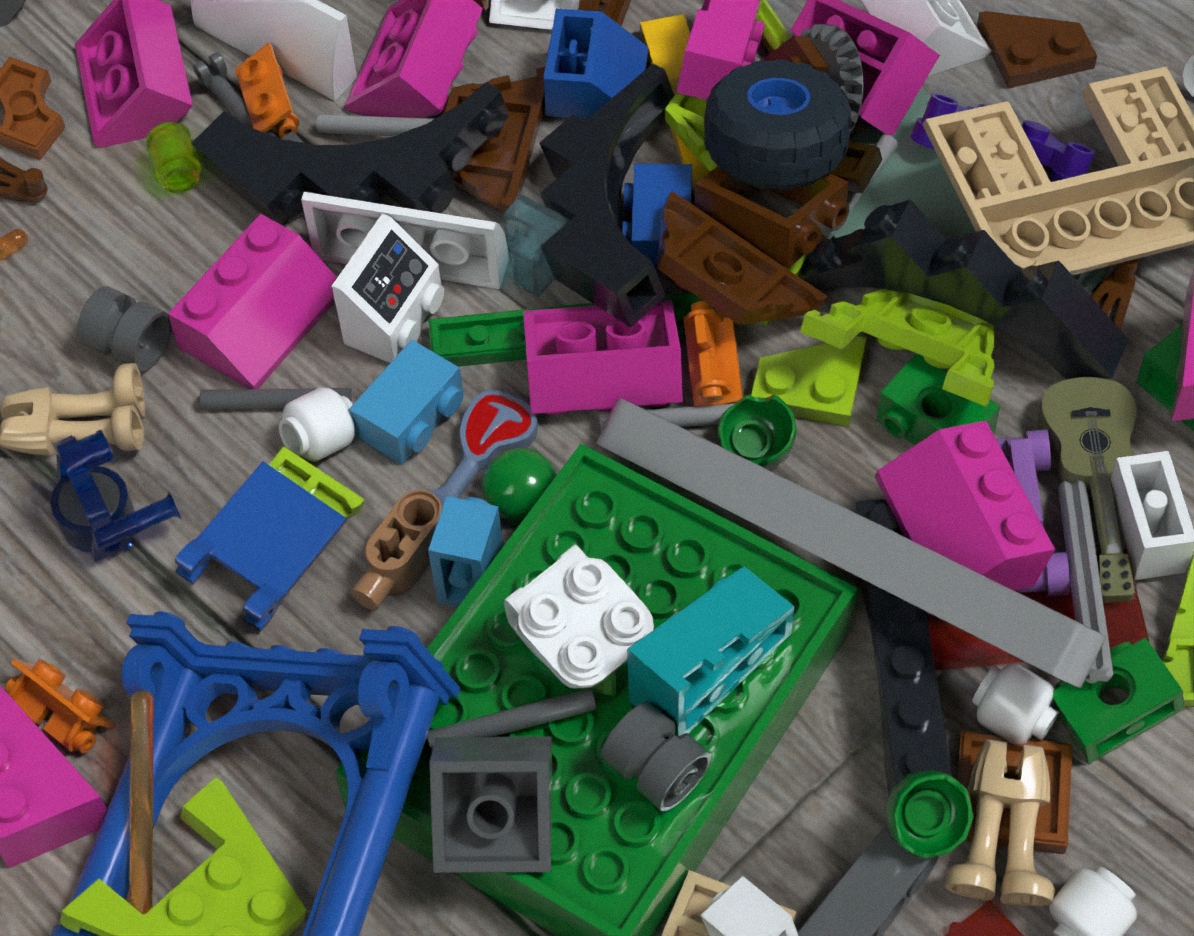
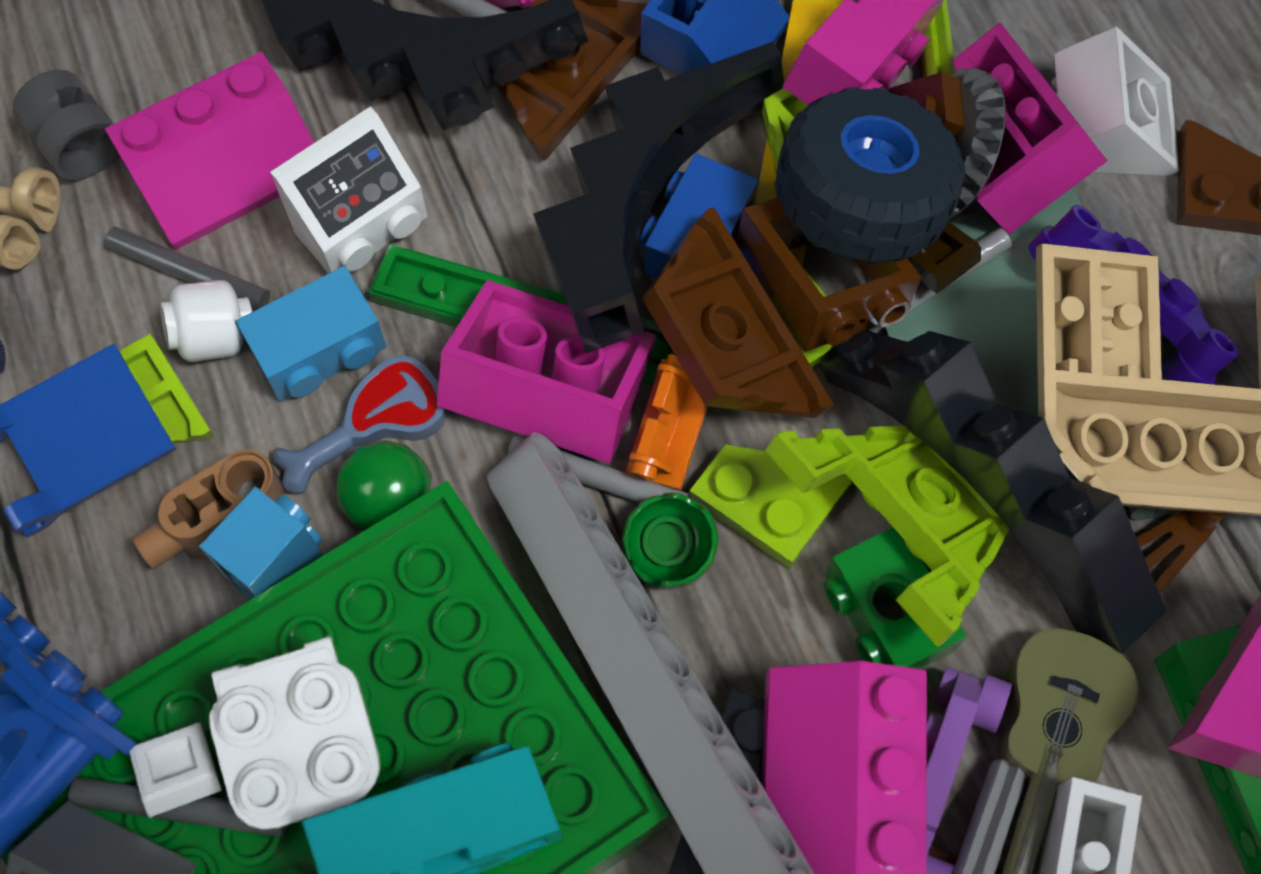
camera: 20 degrees right, 10 degrees up
(463, 247) = (439, 164): white slope -> none
(497, 693) = (174, 769): none -> white tile
(526, 229) = (543, 184): clear light blue piece -> none

